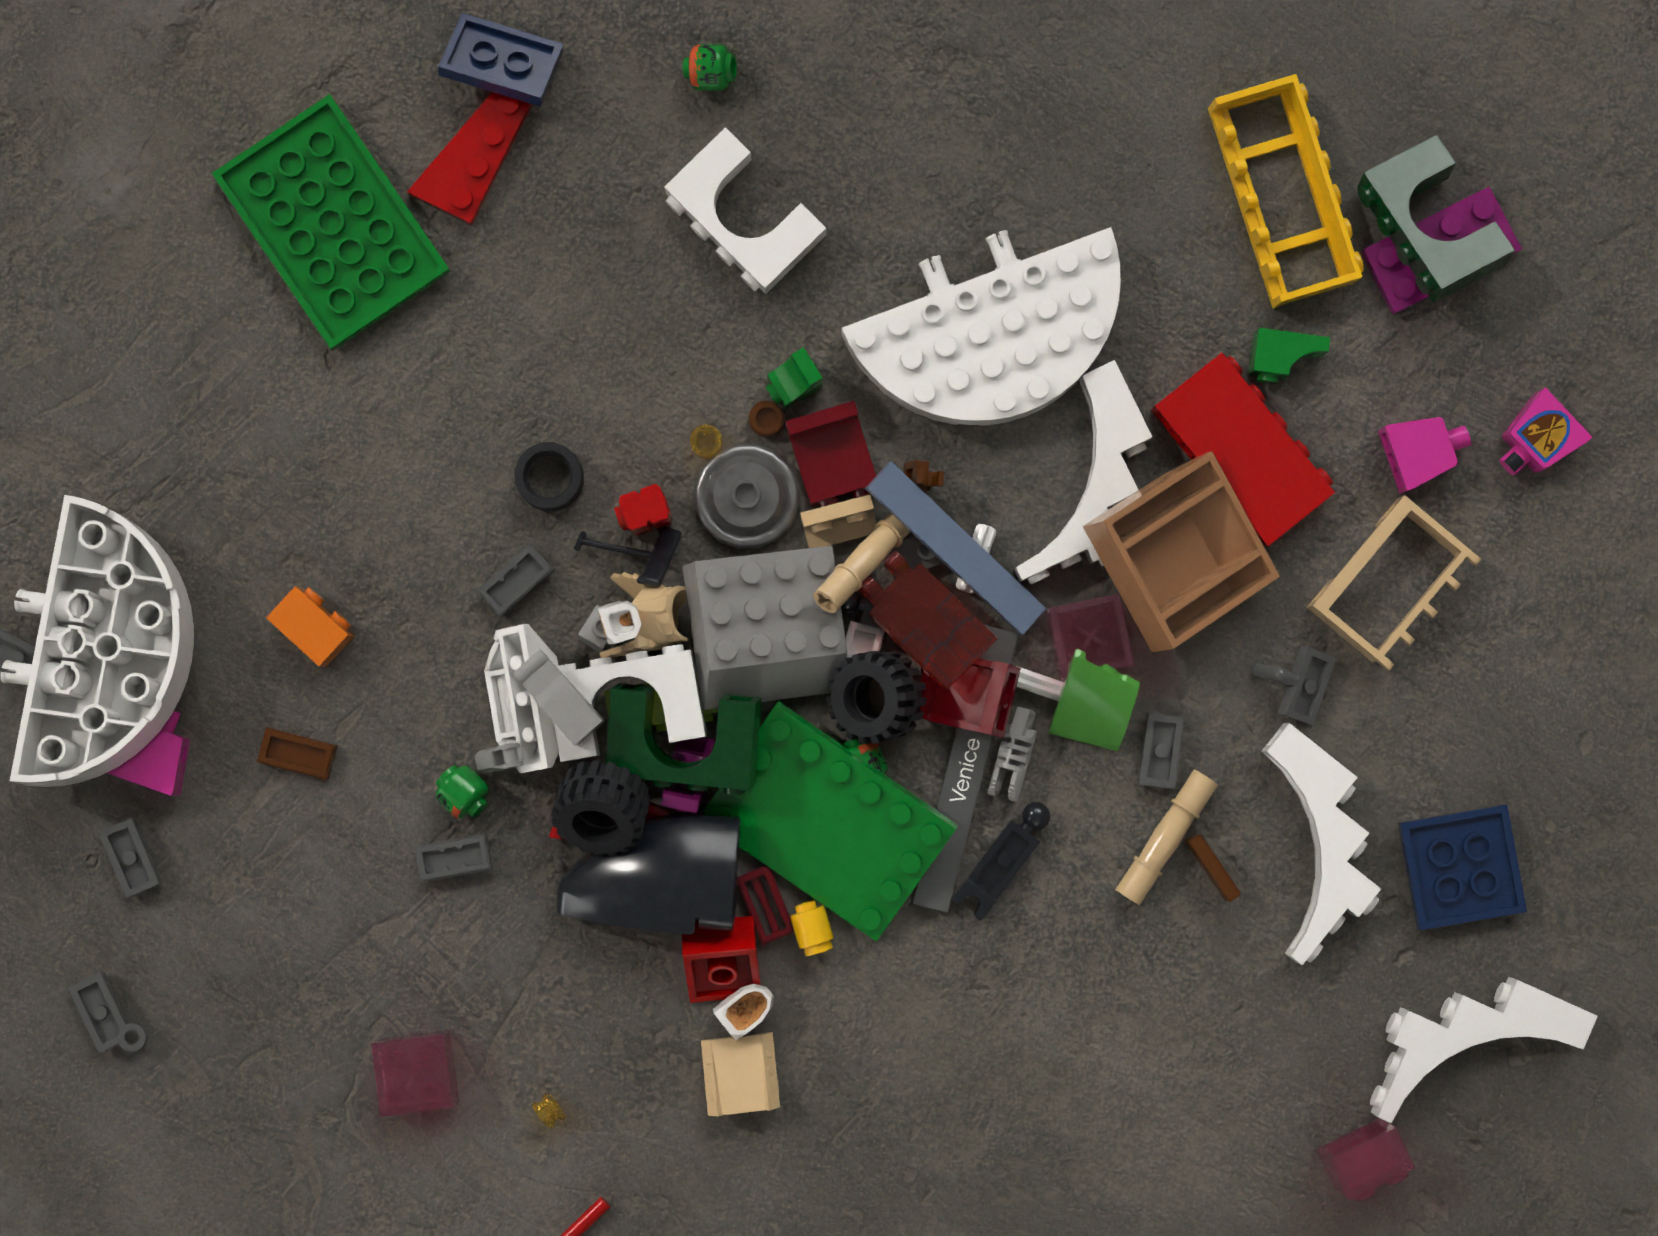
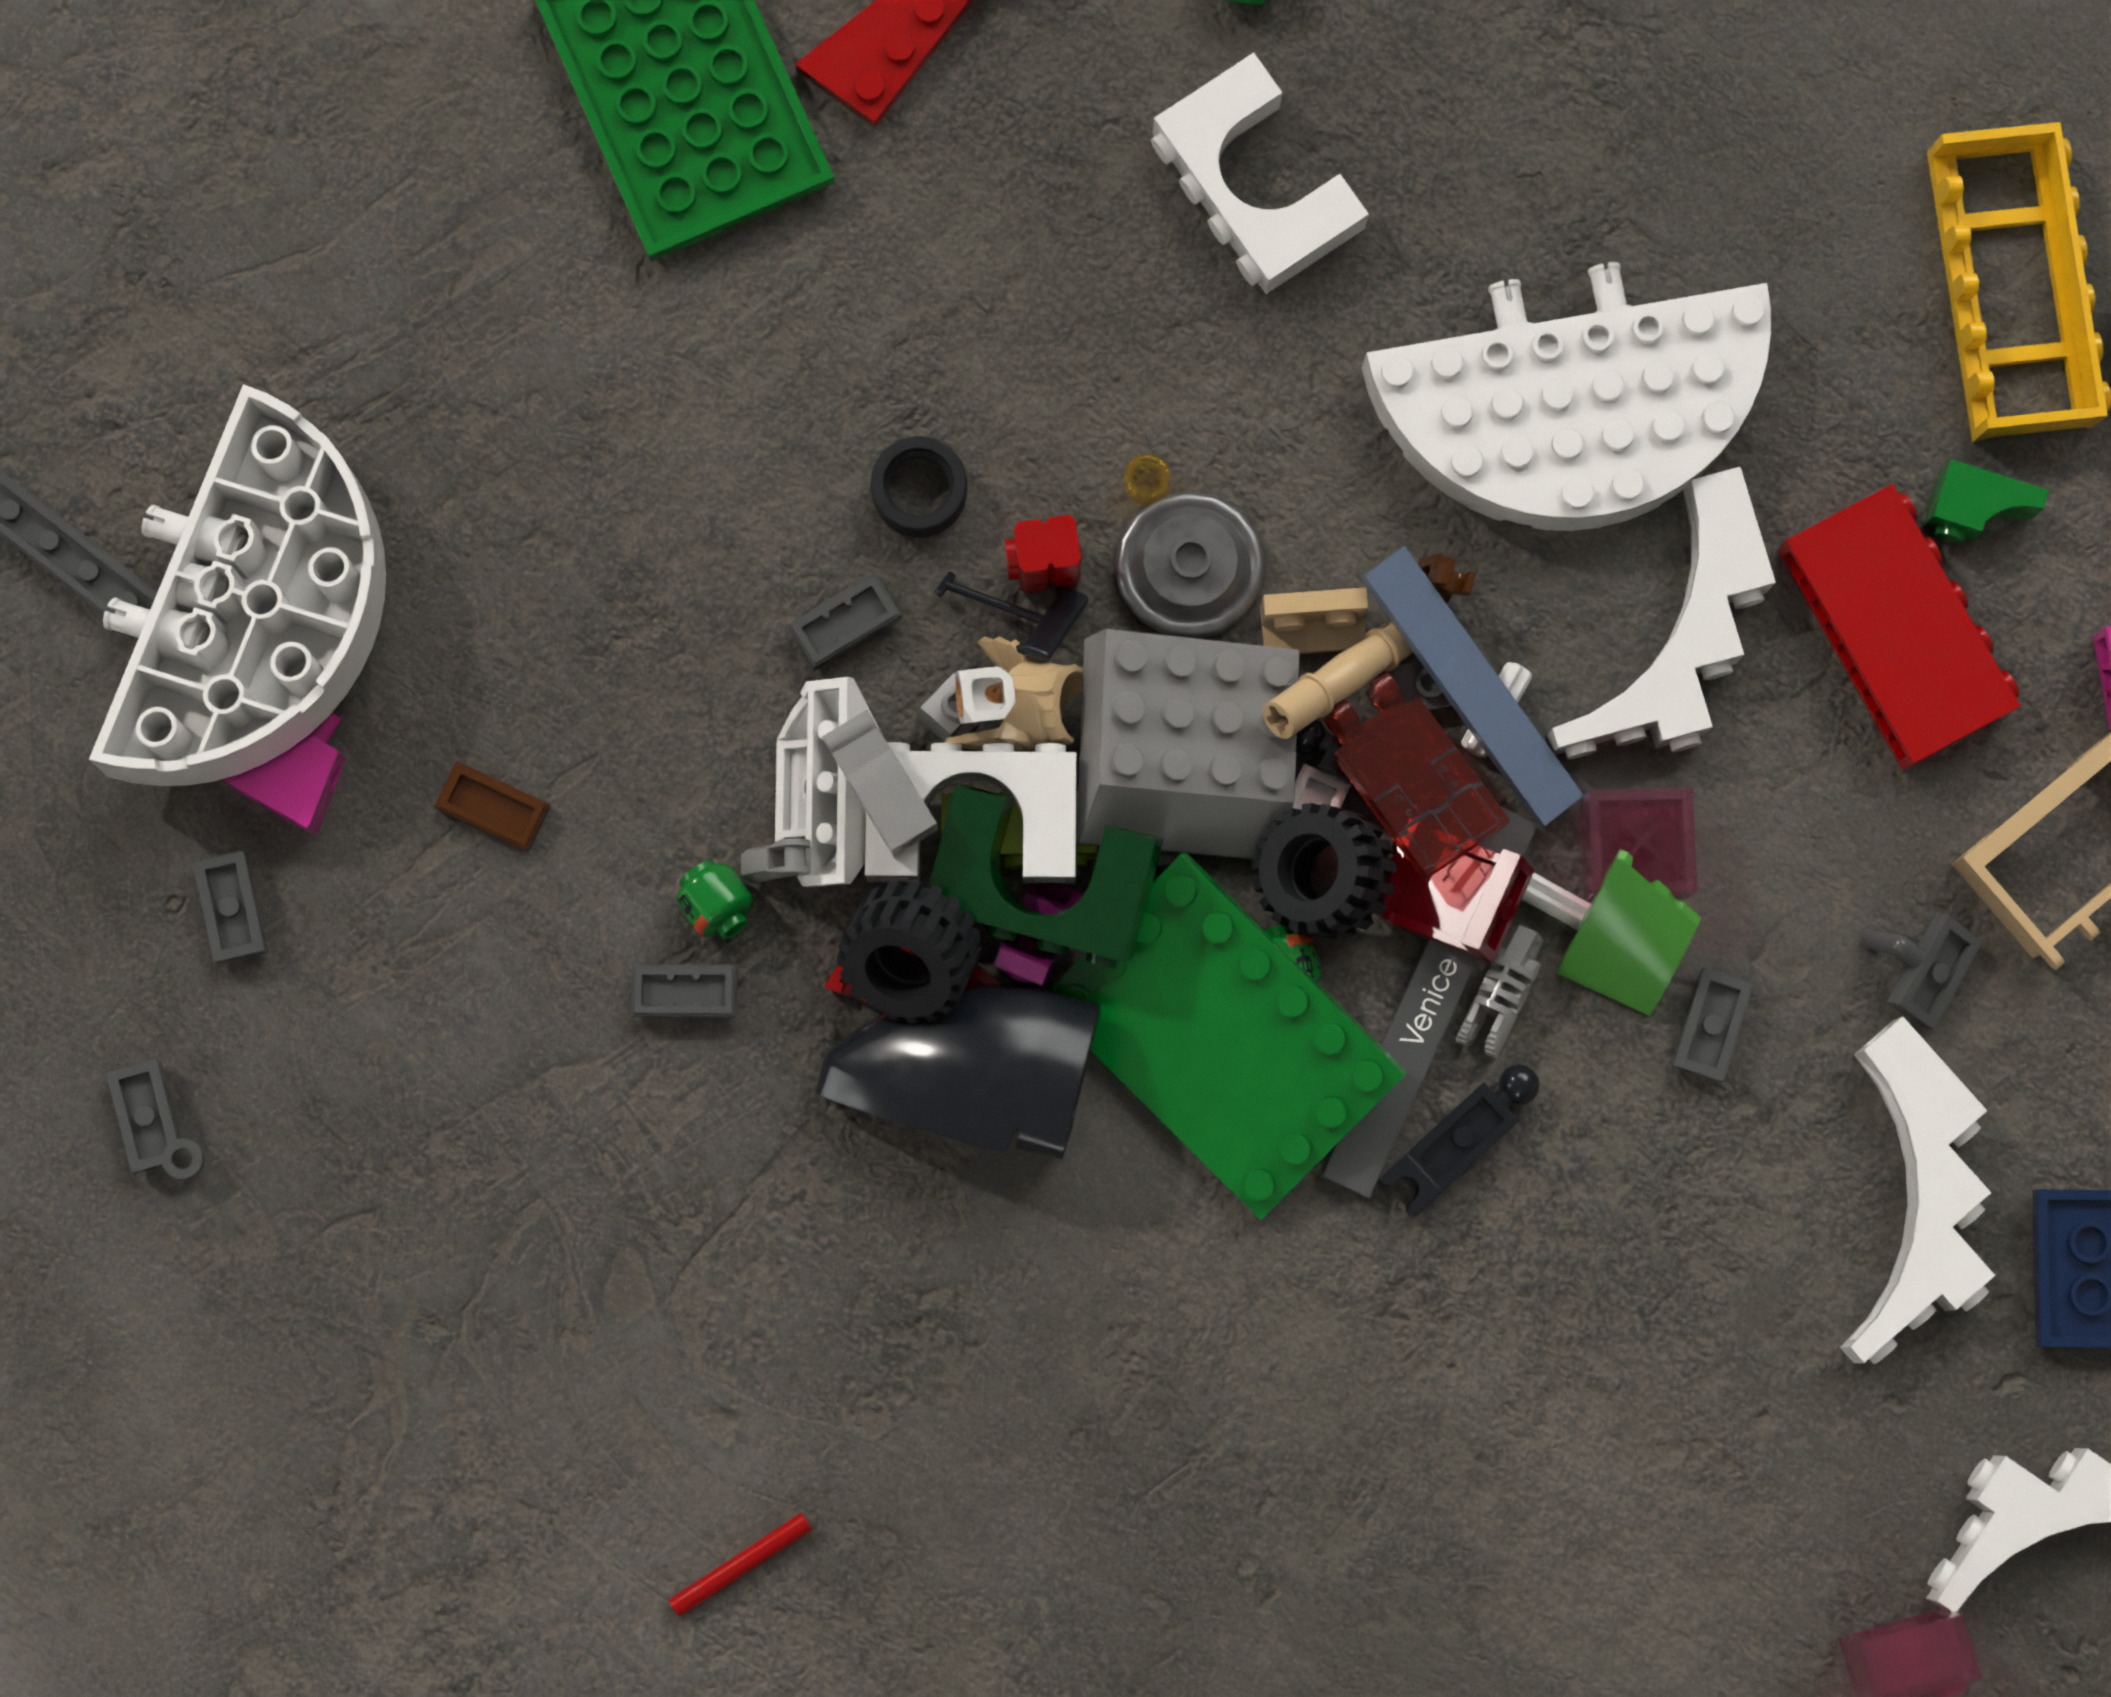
camera: 10 degrees right, 5 degrees down
(311, 625) = (547, 632): orange brick -> none
(415, 1073) = (572, 1283): clear pink brick -> none
(548, 1110) = (751, 1373): clear yellow bush -> none
(720, 960) = (1036, 1207): red slope -> none
(740, 1074) = (1033, 1372): tan slope -> none
(744, 1009) = (1057, 1280): rock -> none
(754, 876) = (1120, 1183): dark red tile -> none
(766, 419) = (1236, 464): reddish brown tile -> none
(794, 380) = (1287, 413): green arch -> none
(812, 928) = (1173, 1183): yellow brick -> none
(831, 454) = (1318, 525): dark red panel -> none
(1166, 837) = (1699, 1149): tan piece -> none
(1181, 552) = (1790, 747): medium nougat slope -> none
(1212, 867) = (1758, 1203): reddish brown tile -> none

